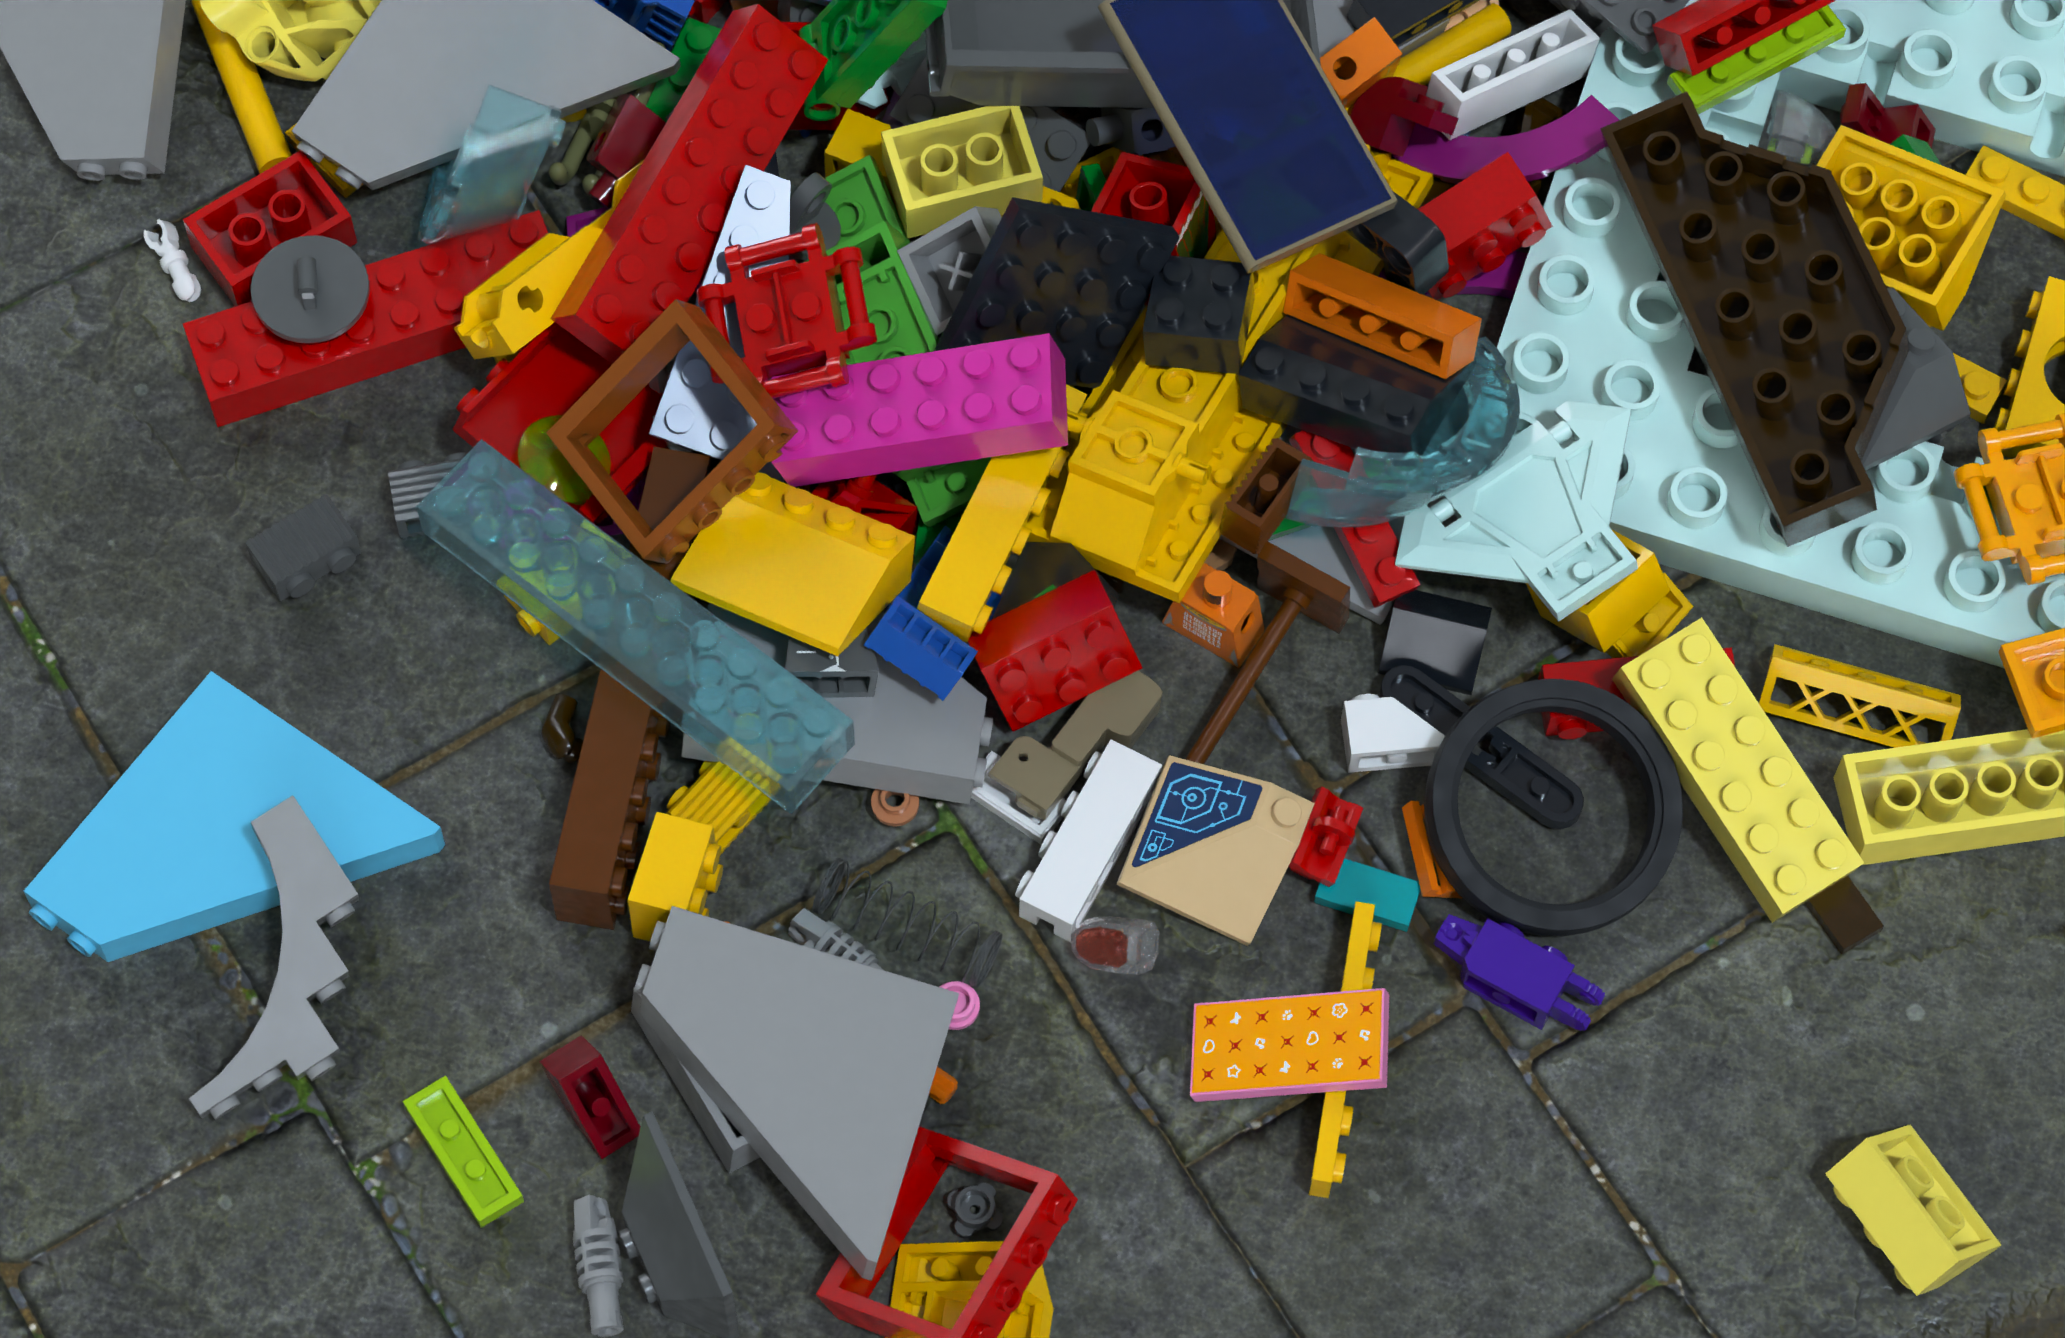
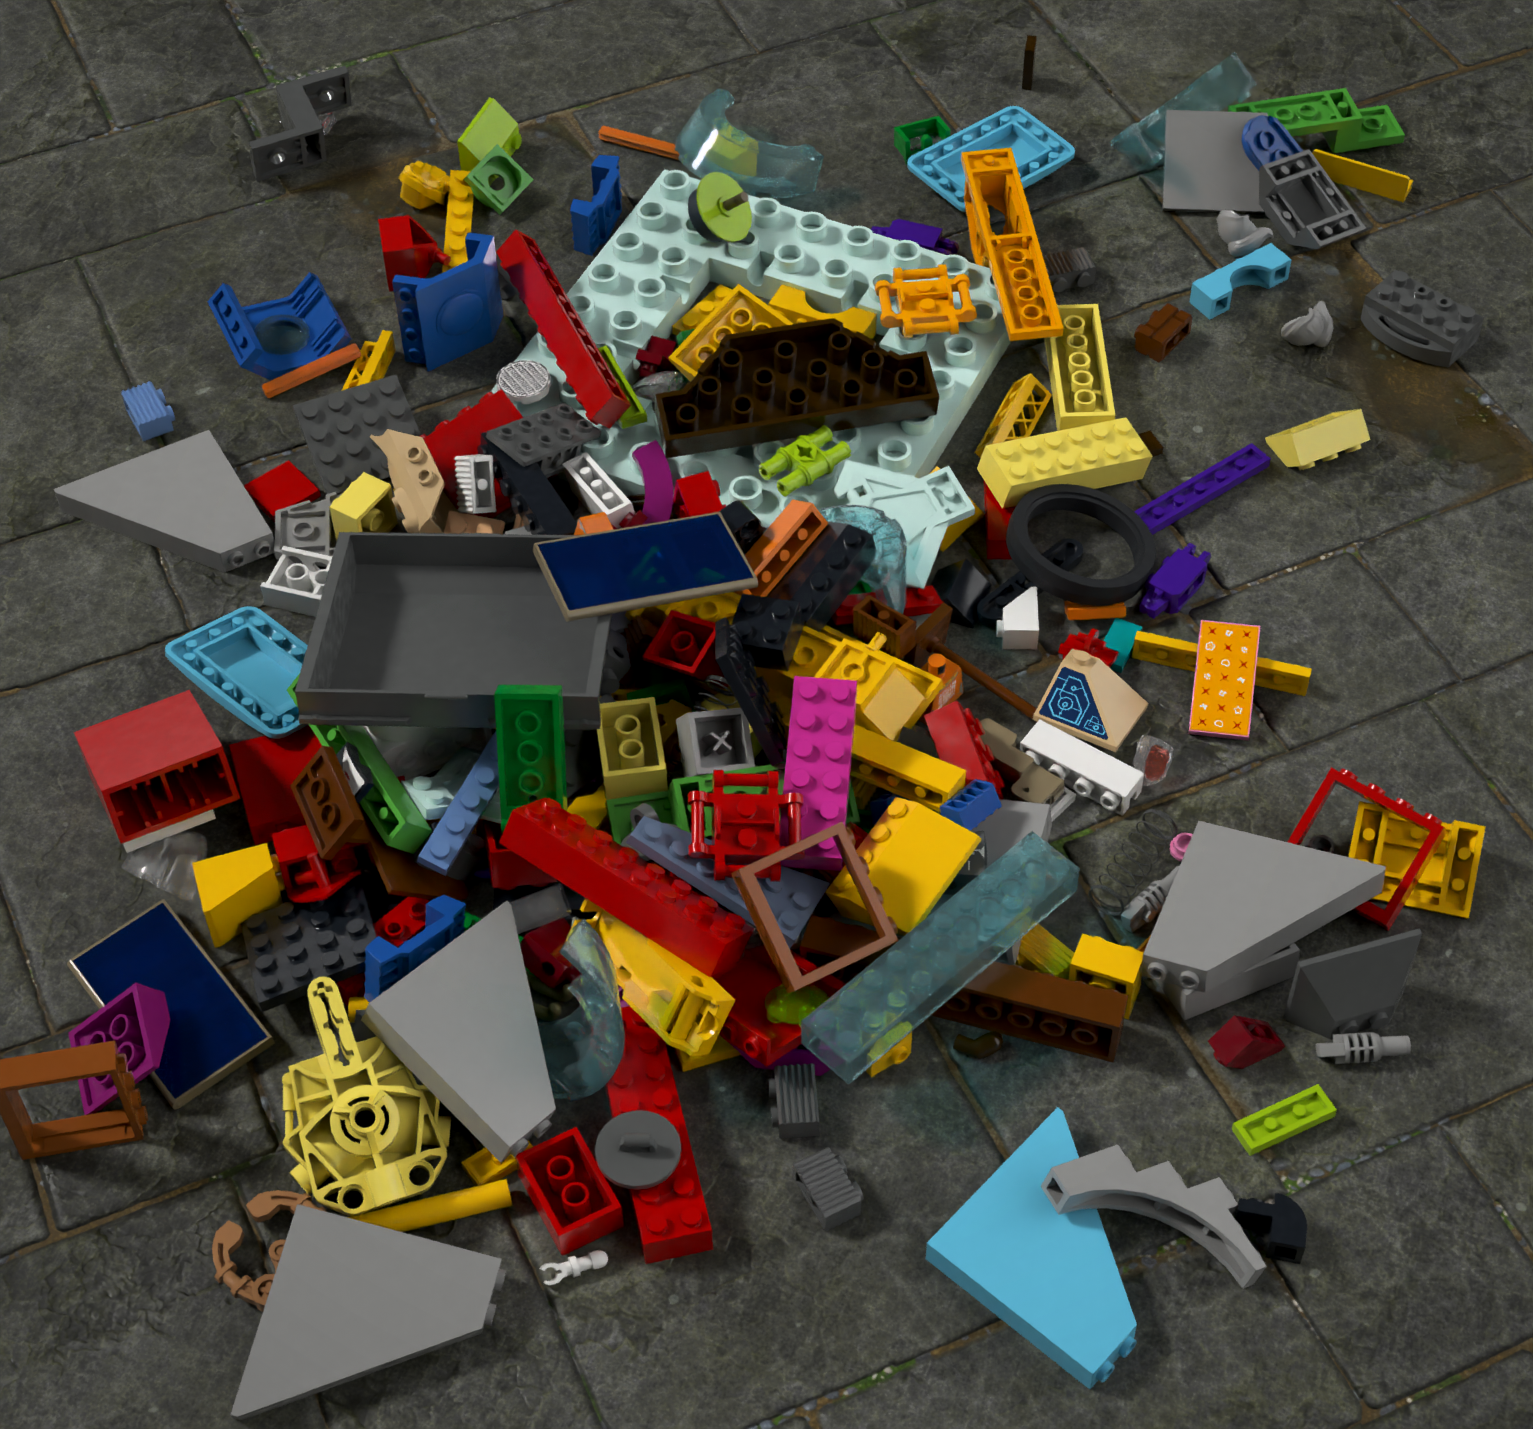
camera: 80 degrees left, 15 degrees down
(283, 1149) = (1281, 1220): none -> black brick
(1628, 371) = (804, 460): none -> lime pin
(1745, 1010) = (1203, 488): none -> dark purple plate

